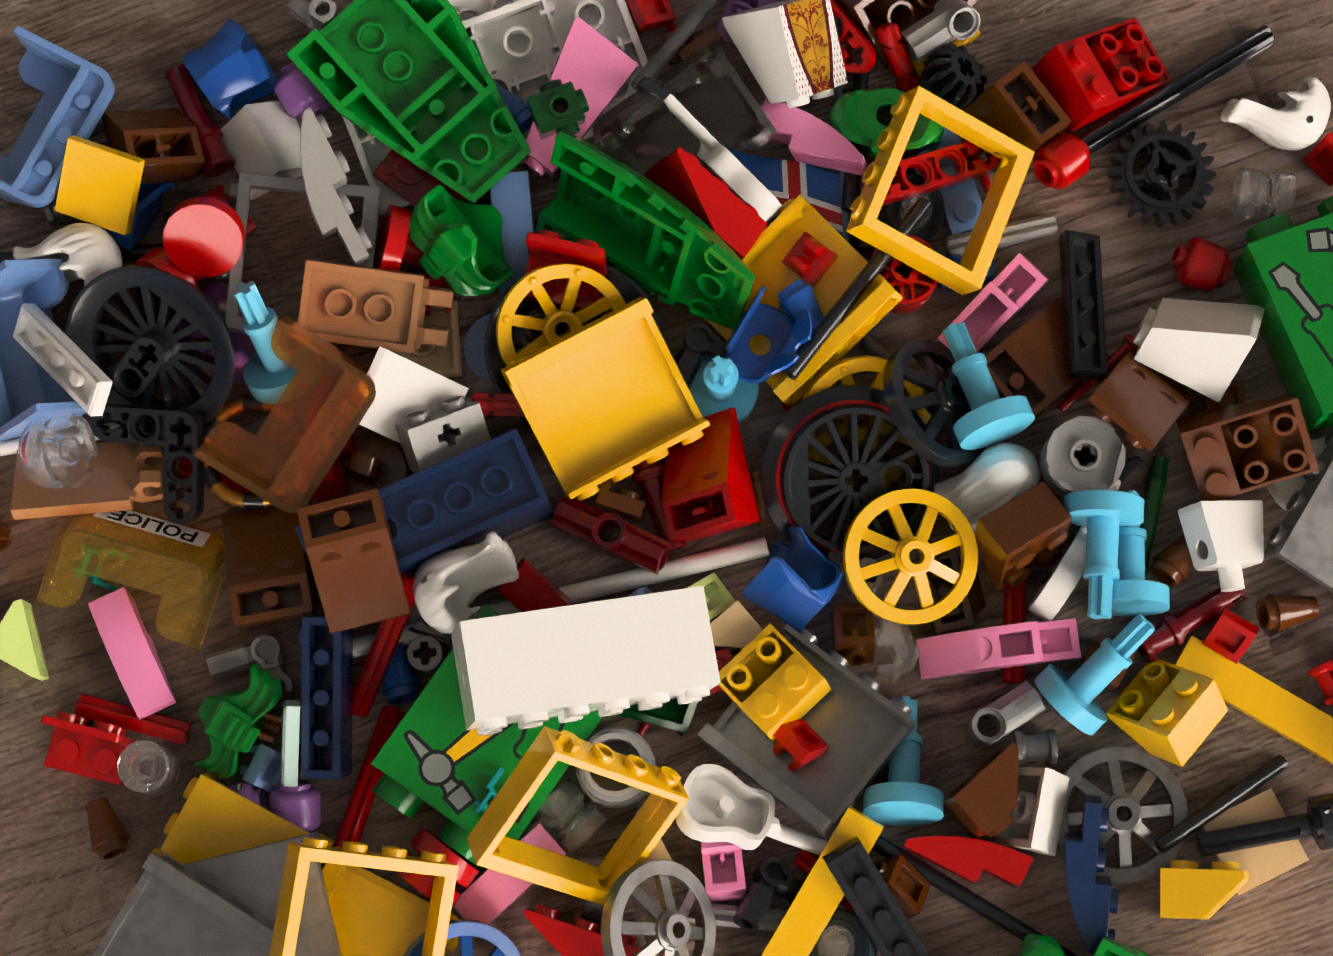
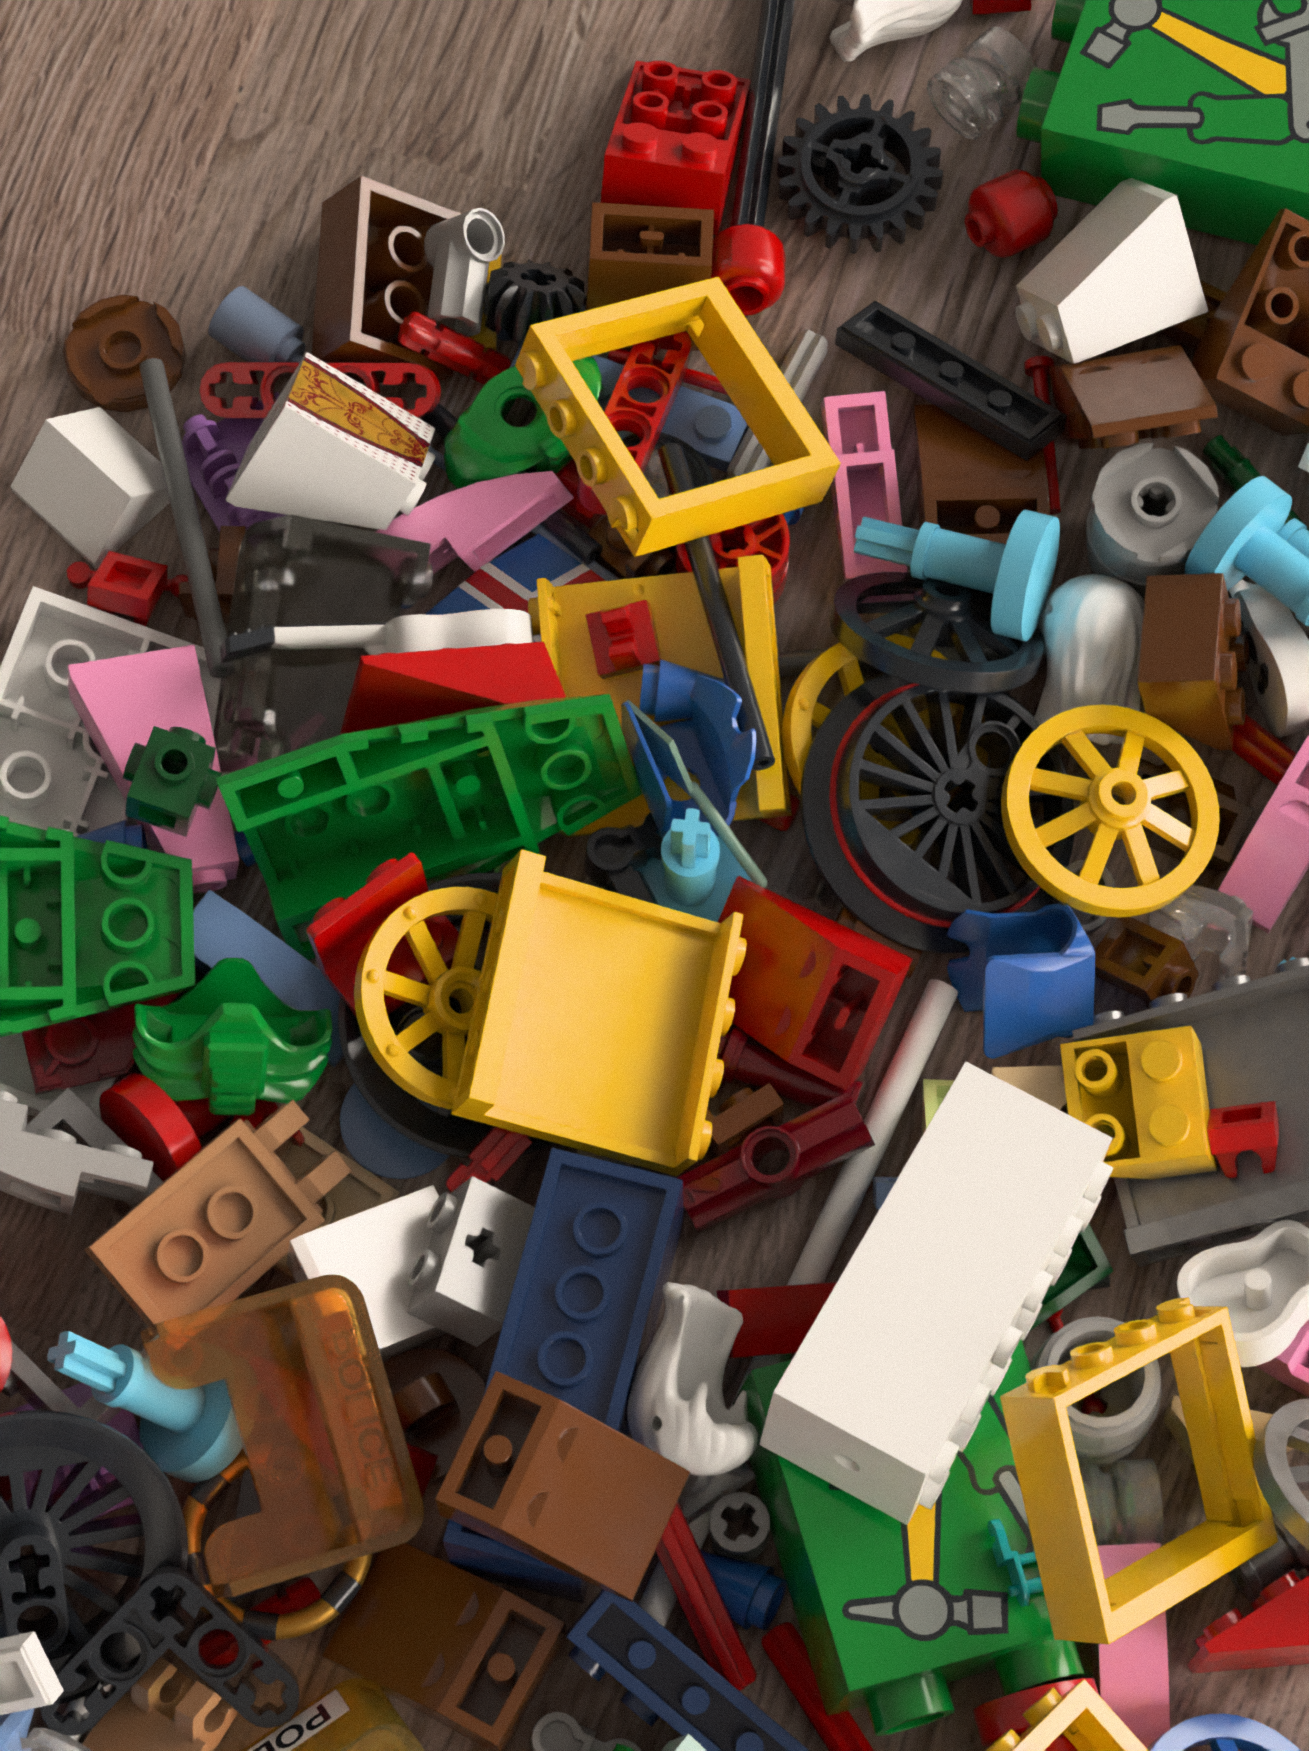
camera: 50 degrees left, 10 degrees down
(753, 361) = (670, 762): none -> sand green piece

